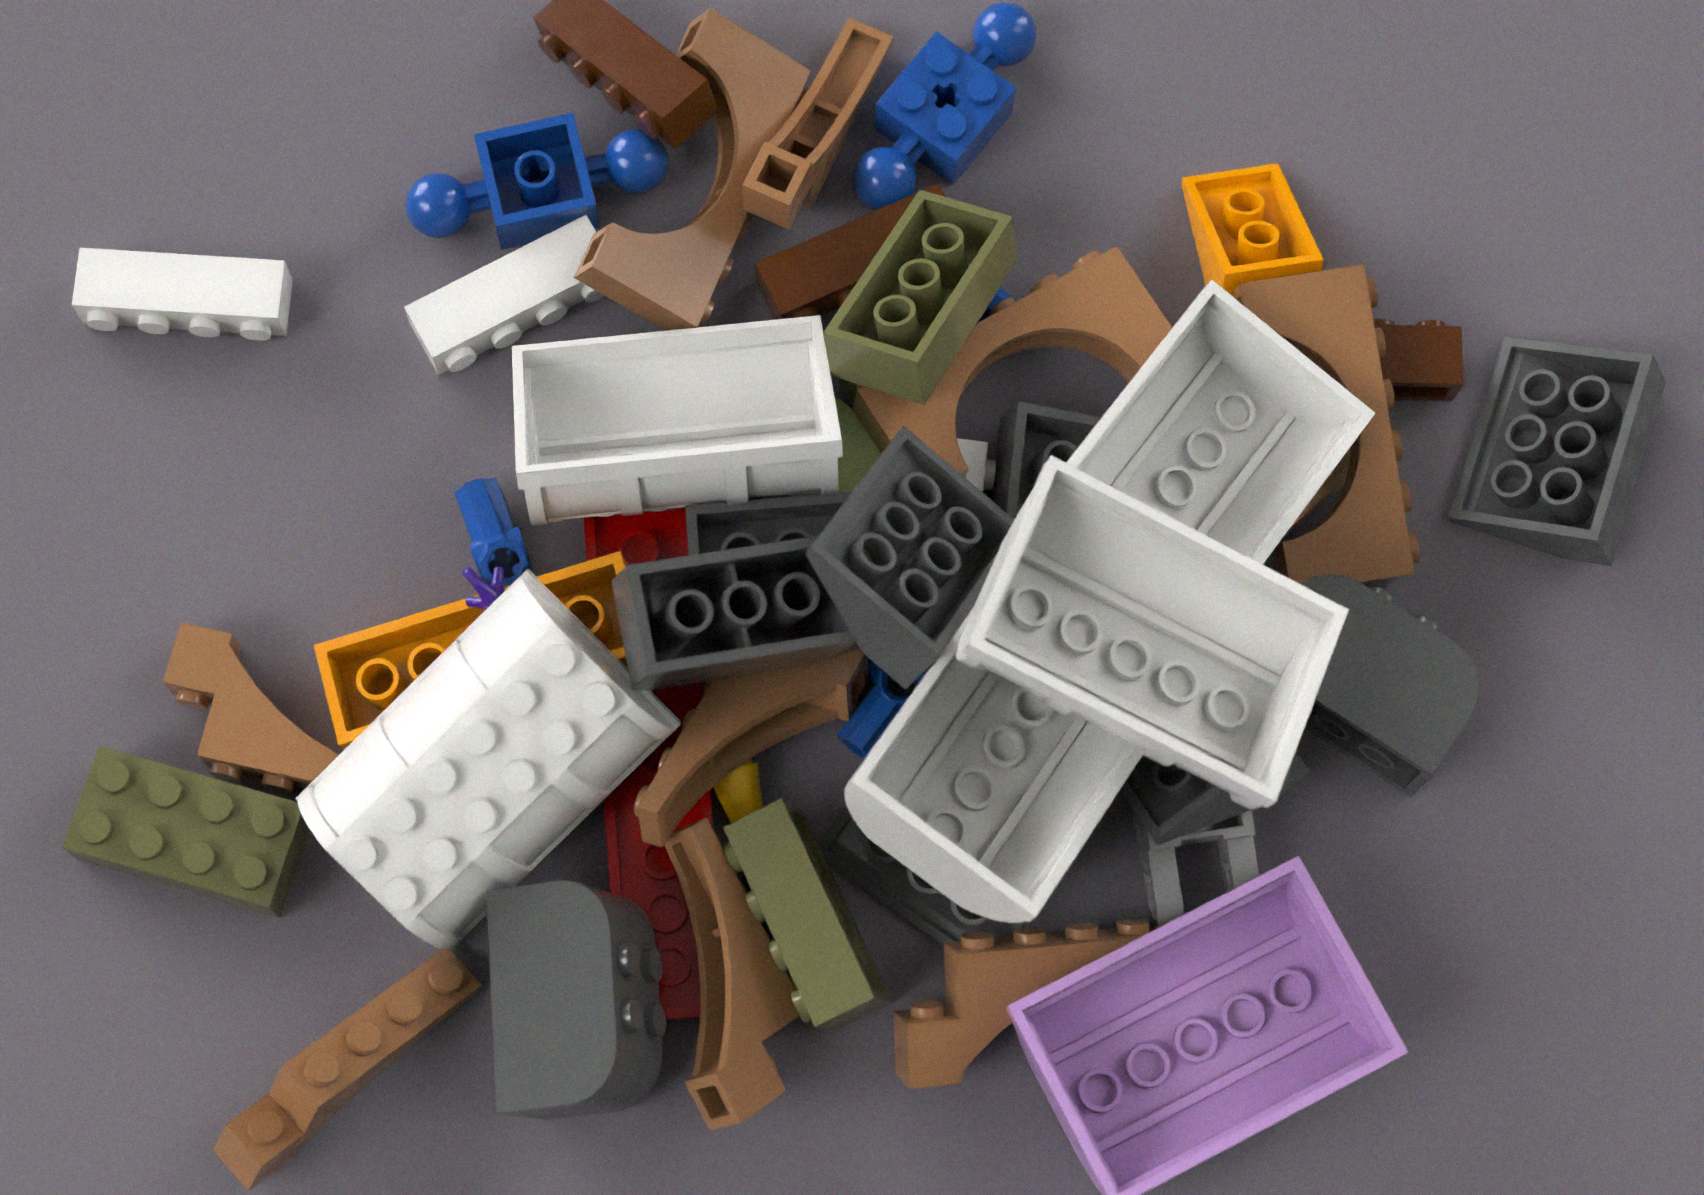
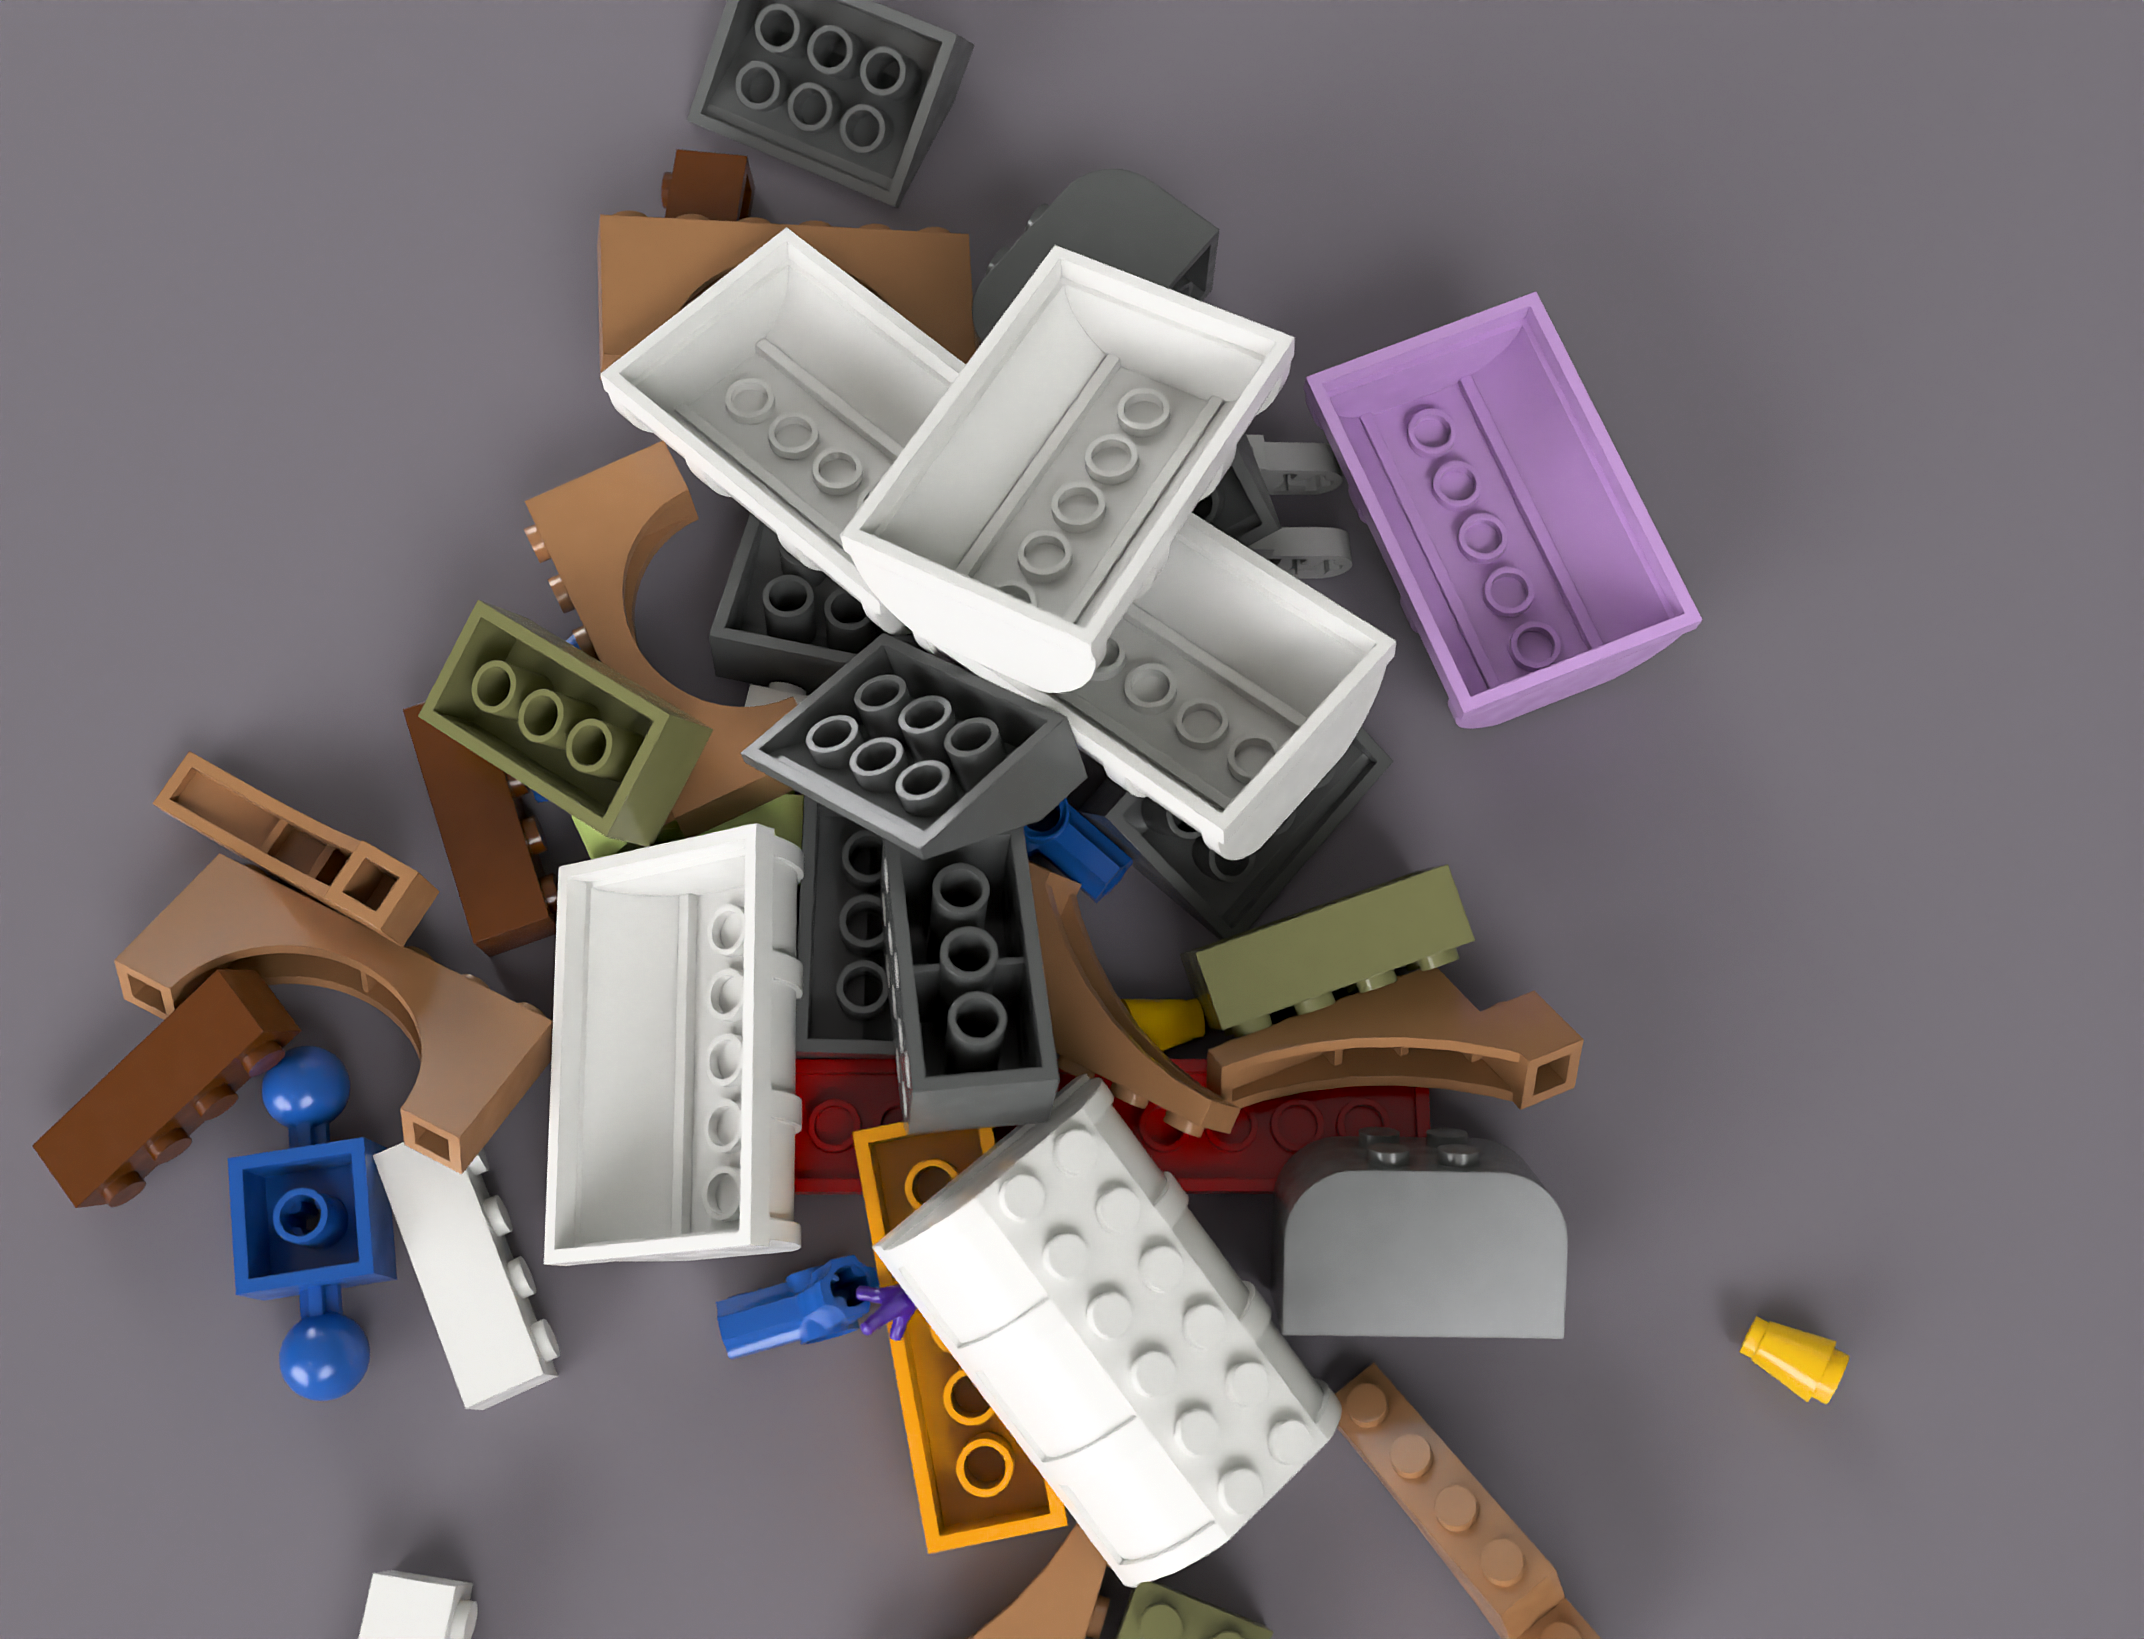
camera: 80 degrees left, 0 degrees up
(971, 99) = (272, 671): blue brick -> none
(981, 981) = (1419, 754): medium nougat arch -> none
(1248, 226) = (523, 367): light orange slope -> none

